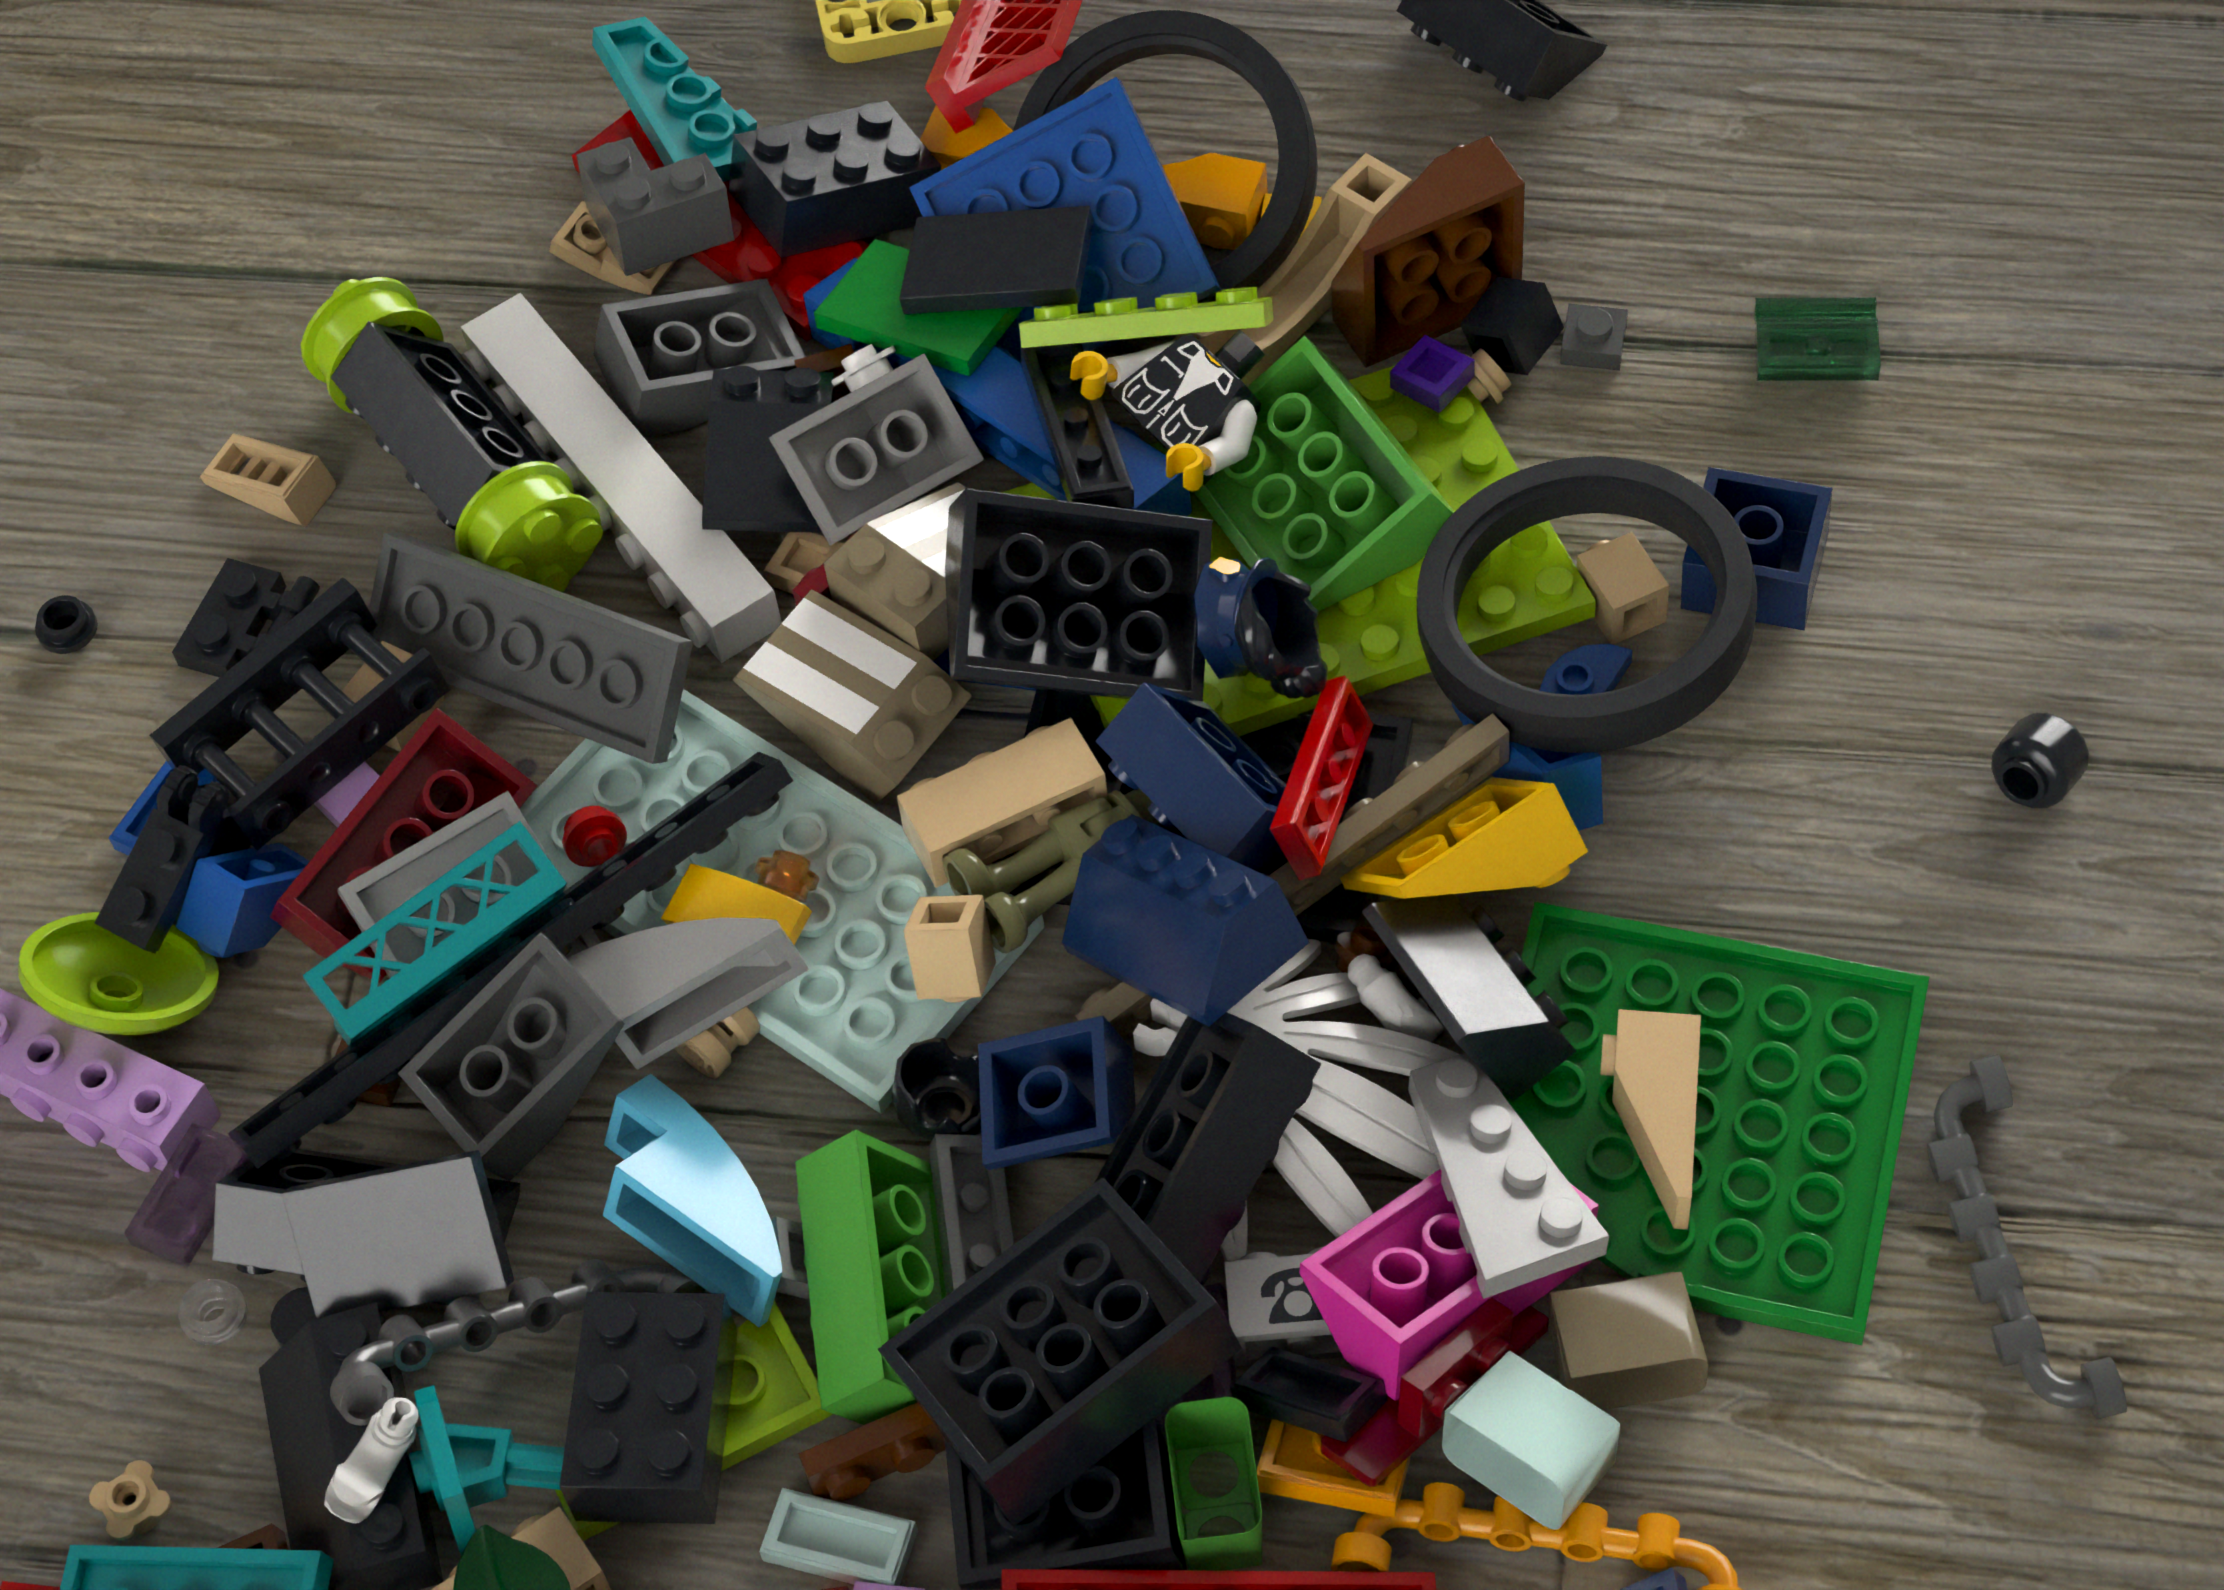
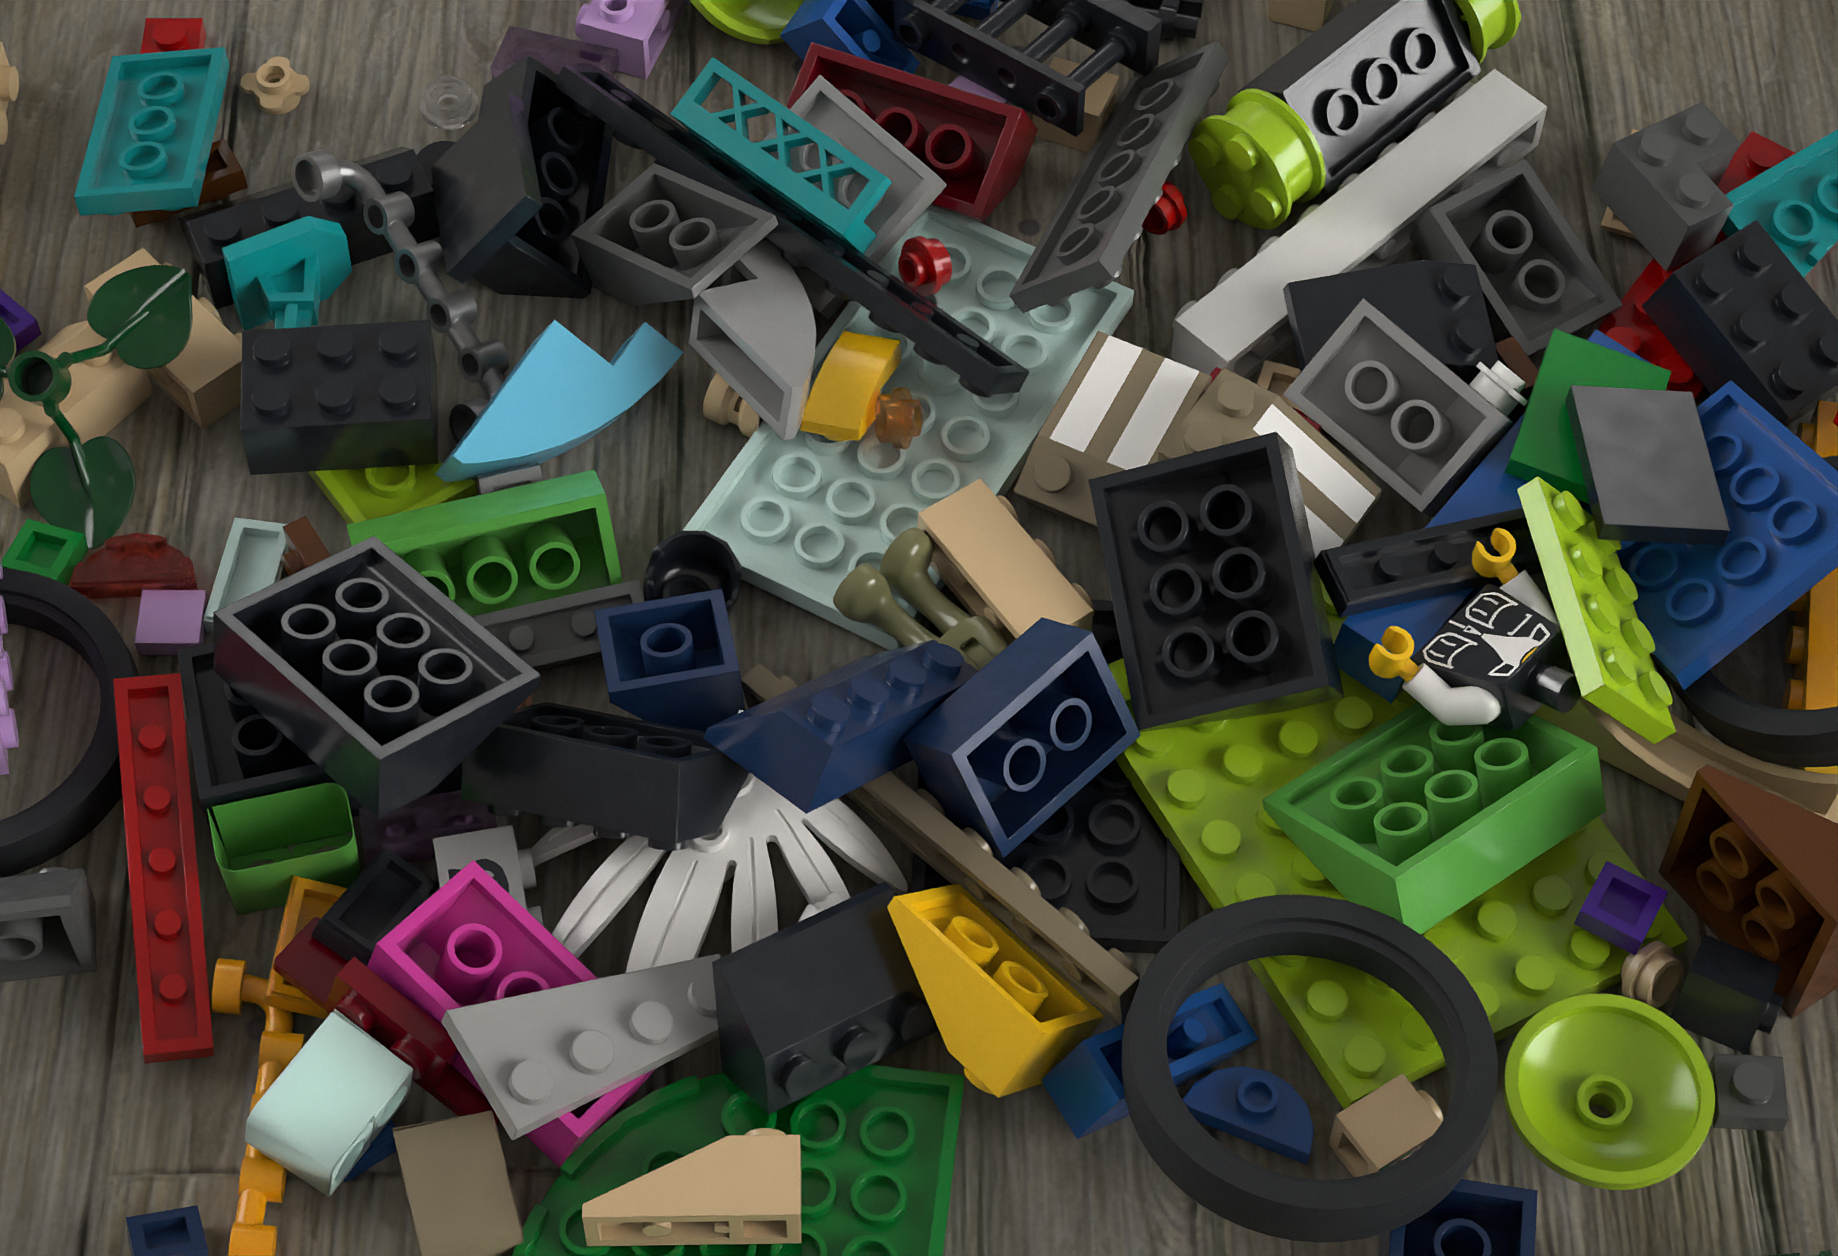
camera: 75 degrees right, 0 degrees up
(365, 1473) = (246, 197): white piece -> none
(950, 947) = (820, 547): tan brick -> none
(1259, 626) = (1214, 749): piece -> none
(1321, 778) = (1043, 831): red tile -> none
(1608, 394) = (1615, 1057): none -> lime dish

